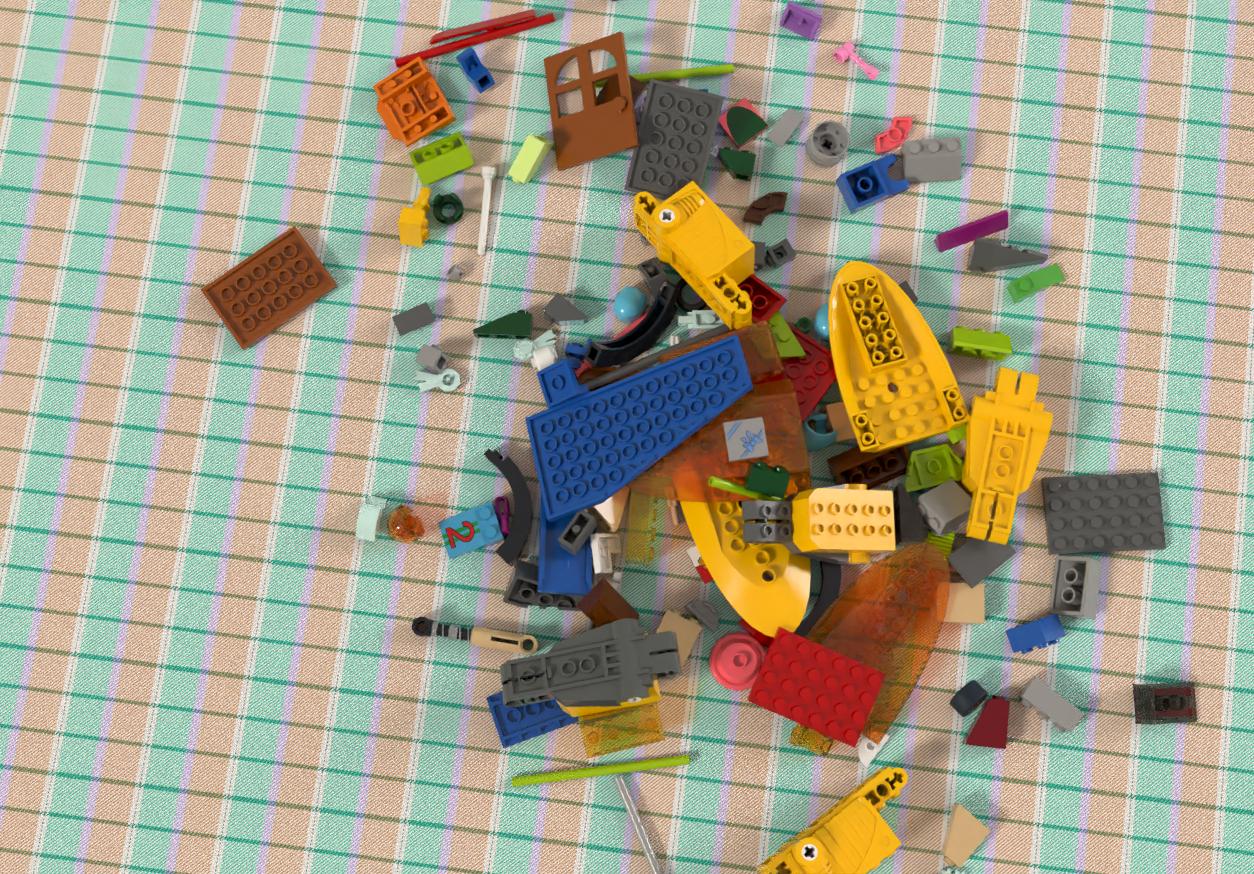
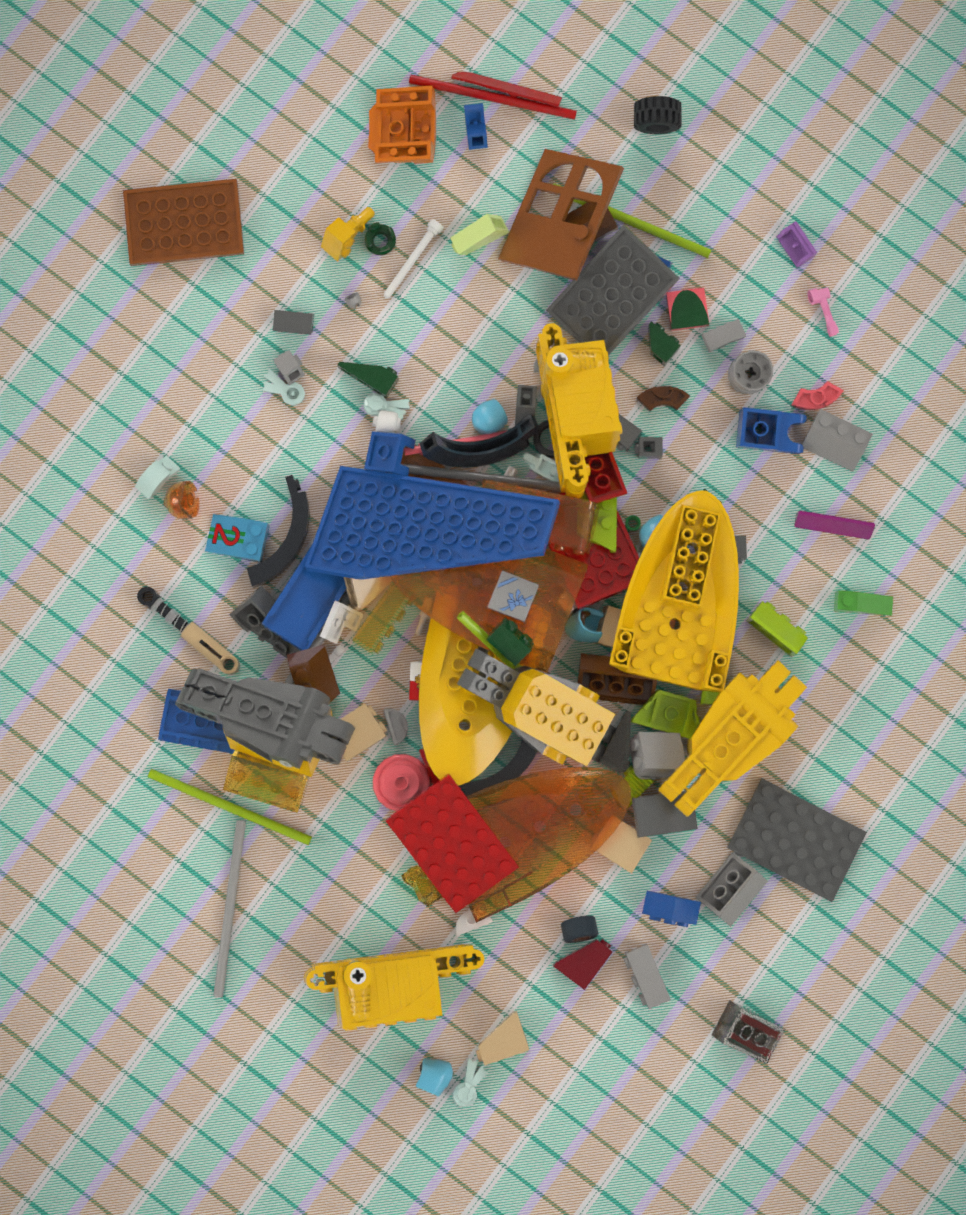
camera: 30 degrees right, 5 degrees up
(441, 158) = (399, 190): lime slope -> none
(503, 519) = (271, 543): magenta piece -> none
(563, 312) = (426, 390): dark grey slope -> none
(576, 350) = (419, 431): blue bracket -> none
(577, 532) = (324, 592): dark grey brick -> none
(990, 256) = (834, 557): dark grey wedge -> none

